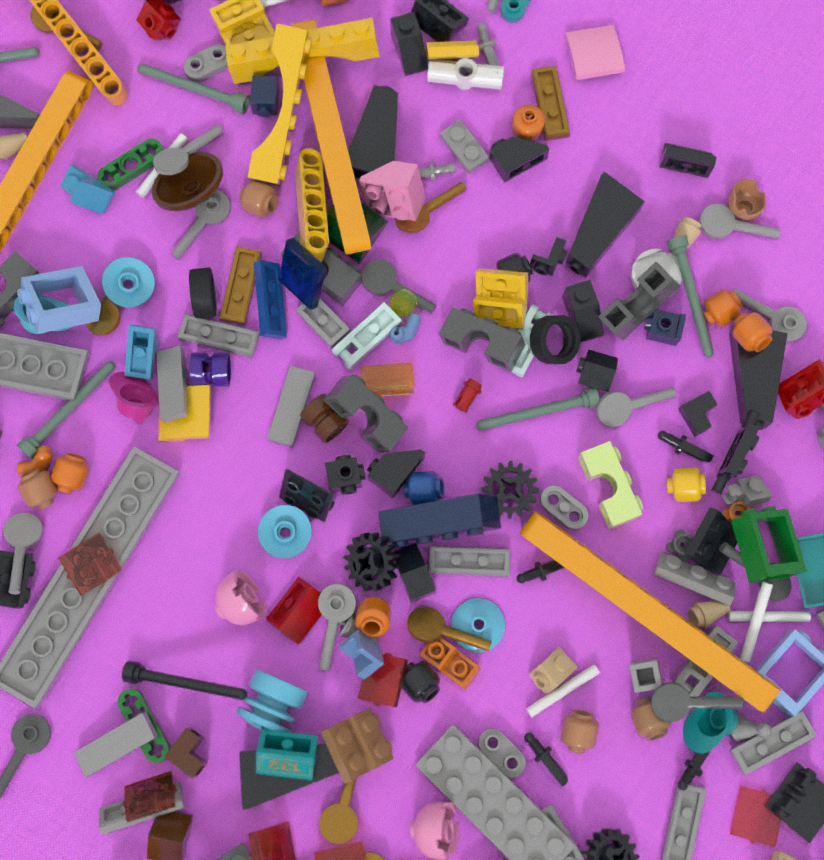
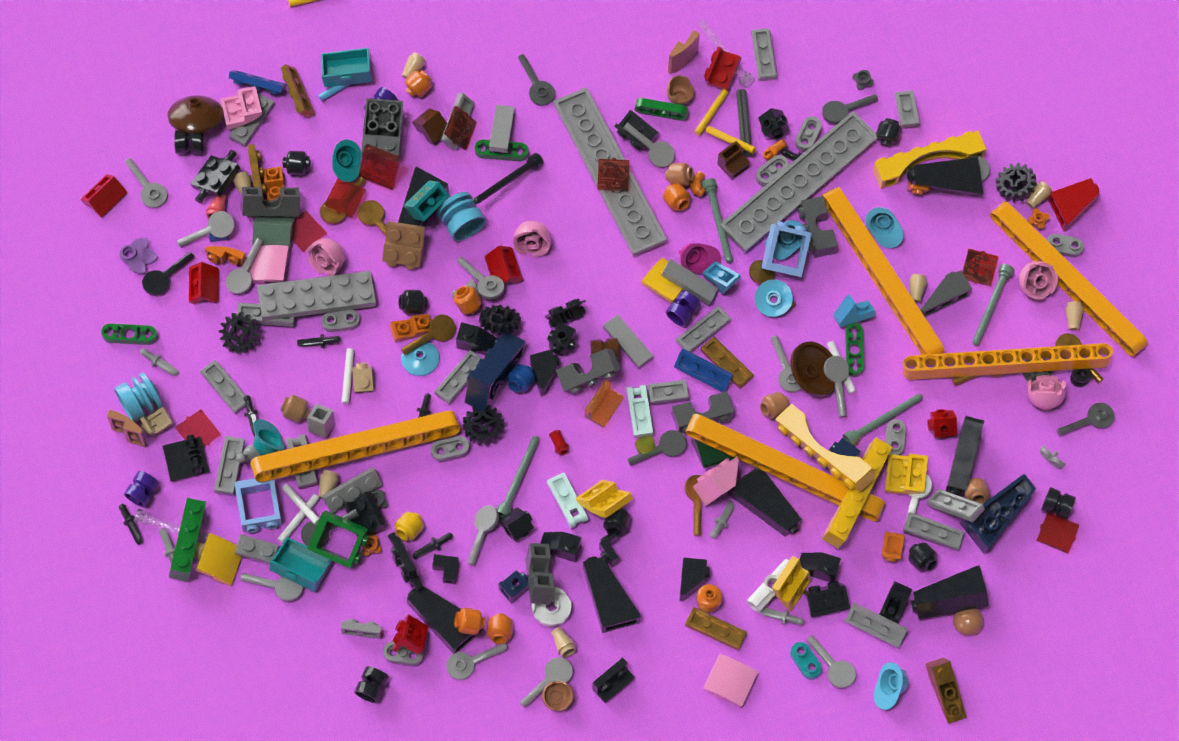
camera: 125 degrees right, 10 degrees down
(183, 753) = (468, 158): reddish brown piece -> none
(202, 292) = (734, 332): black tyre -> none
(278, 519) = (554, 279): medium azure dish -> none
(302, 273) = (702, 390): clear blue plate -> none
(311, 203) = (736, 421): yellow beam -> none
(364, 652) = (451, 282): medium blue panel -> none
(385, 683) = (429, 284): clear red piece -> none
(406, 332) = (625, 435): medium blue arm -> none
(464, 147) = (724, 553): light grey plate -> none
(464, 327) = (573, 477): dark grey arch -> none
(571, 344) = (567, 513): black tyre -> none
(579, 731) = (319, 366): nougat head -> none
(604, 463) = (457, 489): yellowish green arch -> none
(673, 702) = (293, 417): dark grey piece -> none
(679, 248) = (556, 625): sand green piece -> none
(749, 490) = (377, 559): light grey plate -> none

